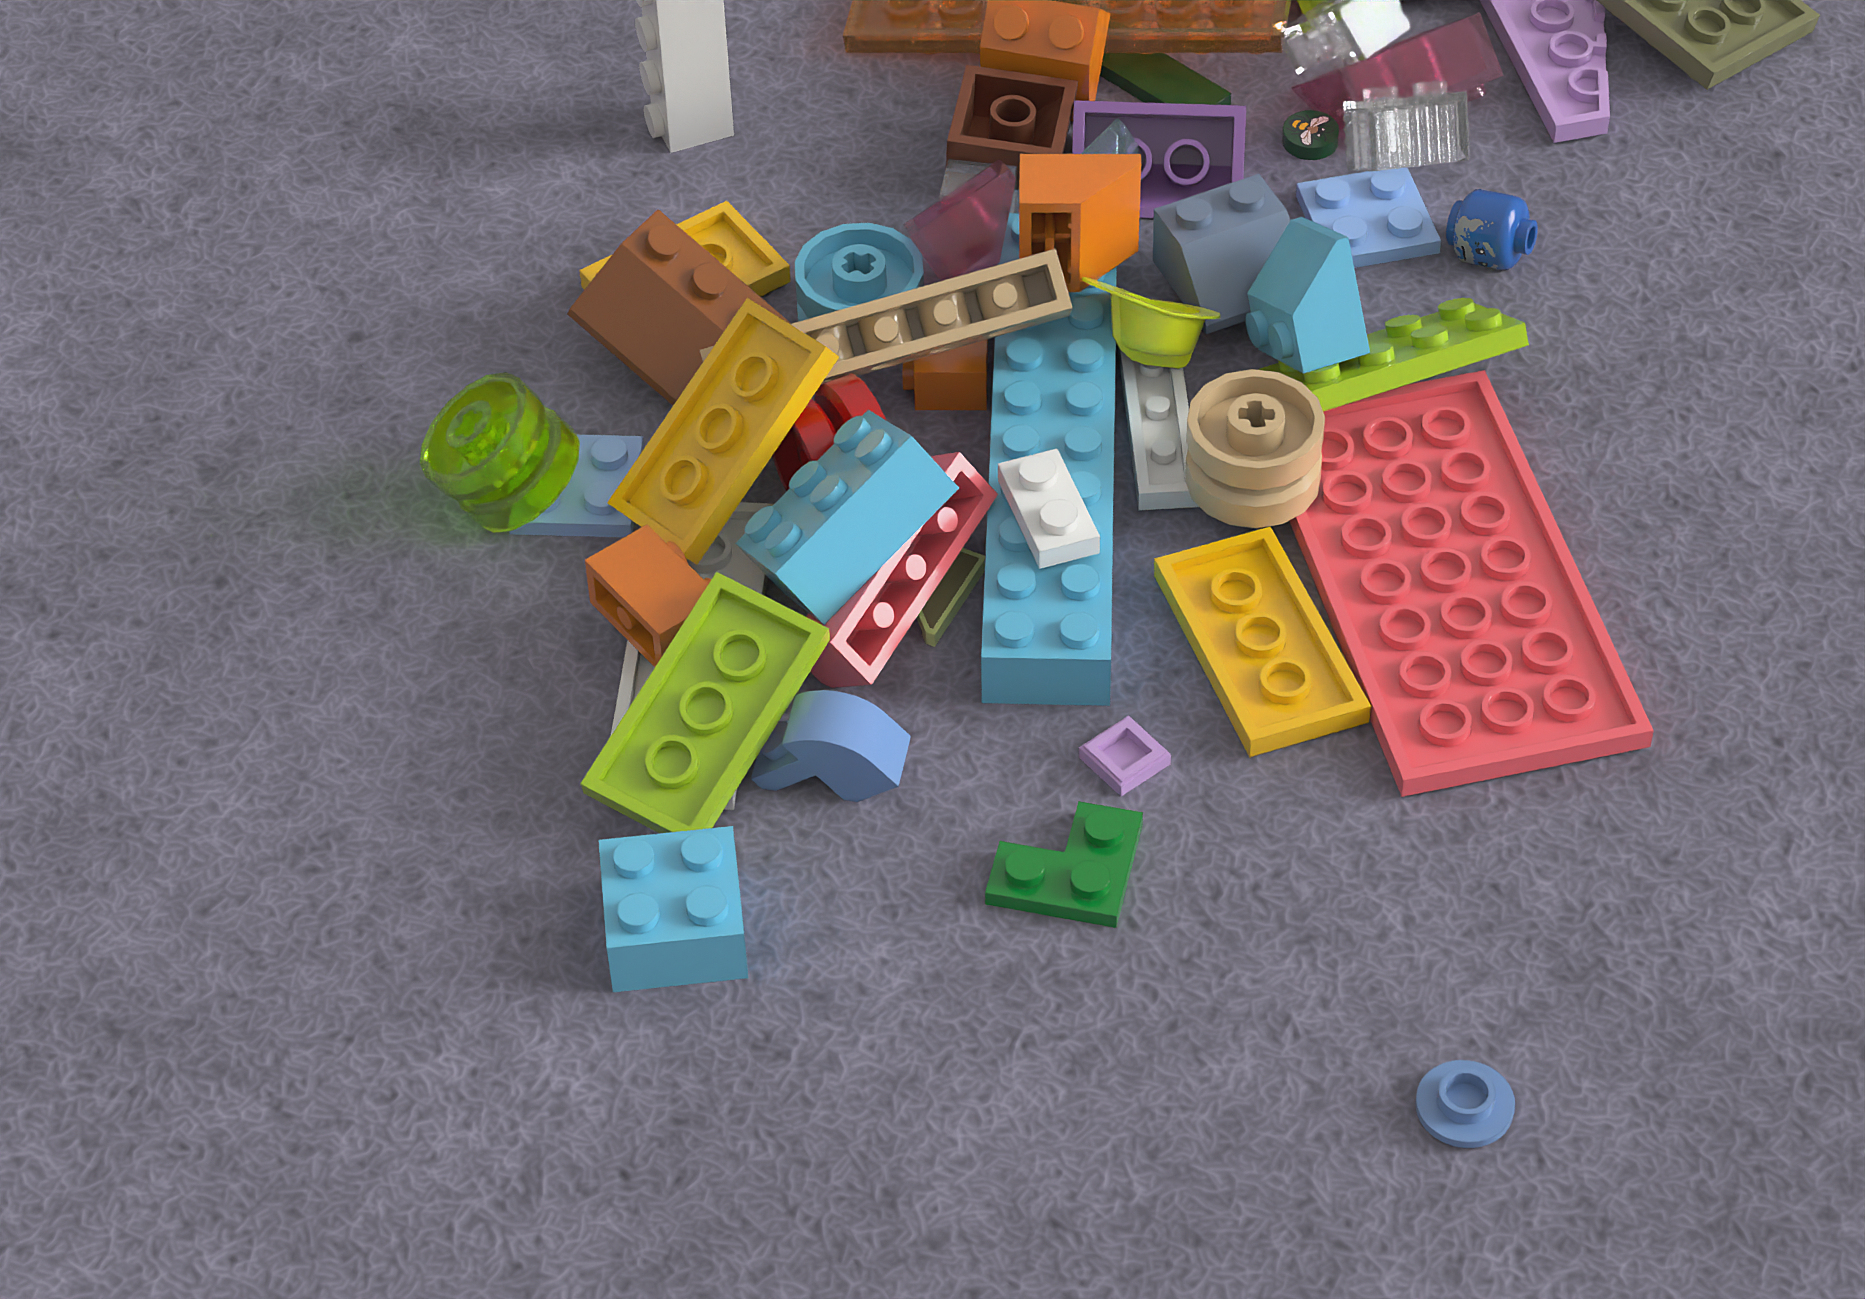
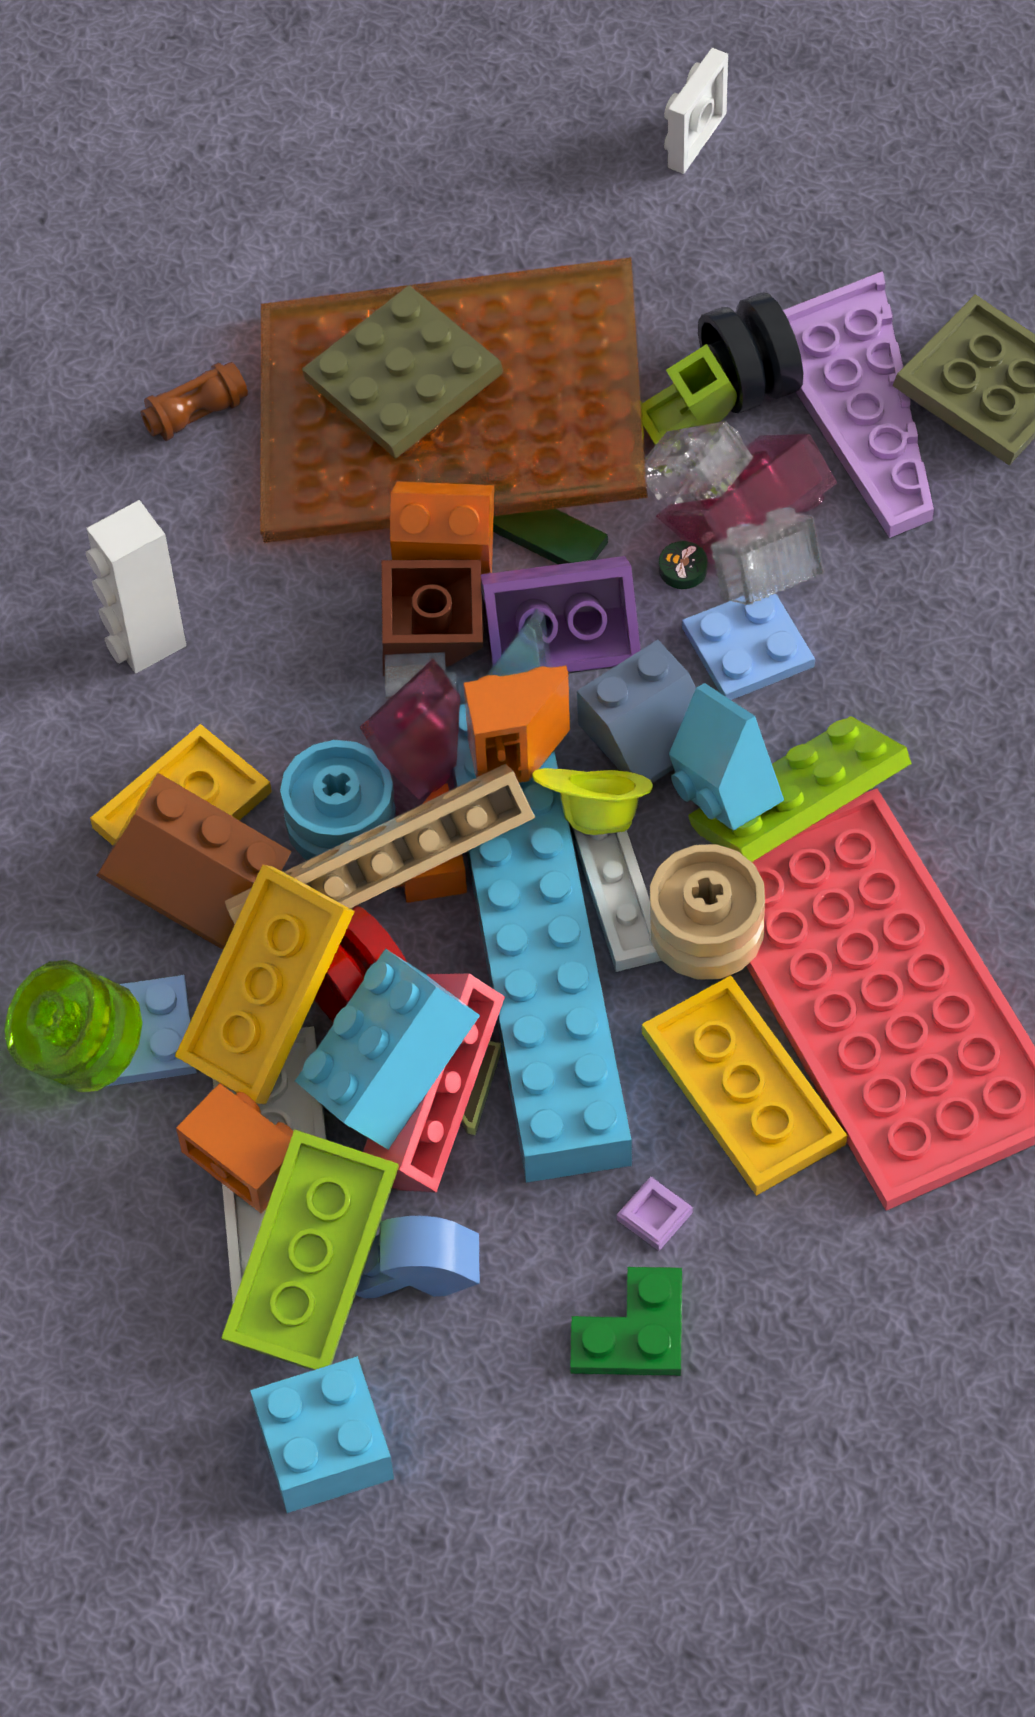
camera: 10 degrees left, 10 degrees up
(1048, 508) = (551, 1007): white plate -> none
(1465, 1104) = (990, 1487): medium blue piece -> none
(1491, 229) = (855, 643): blue head -> none

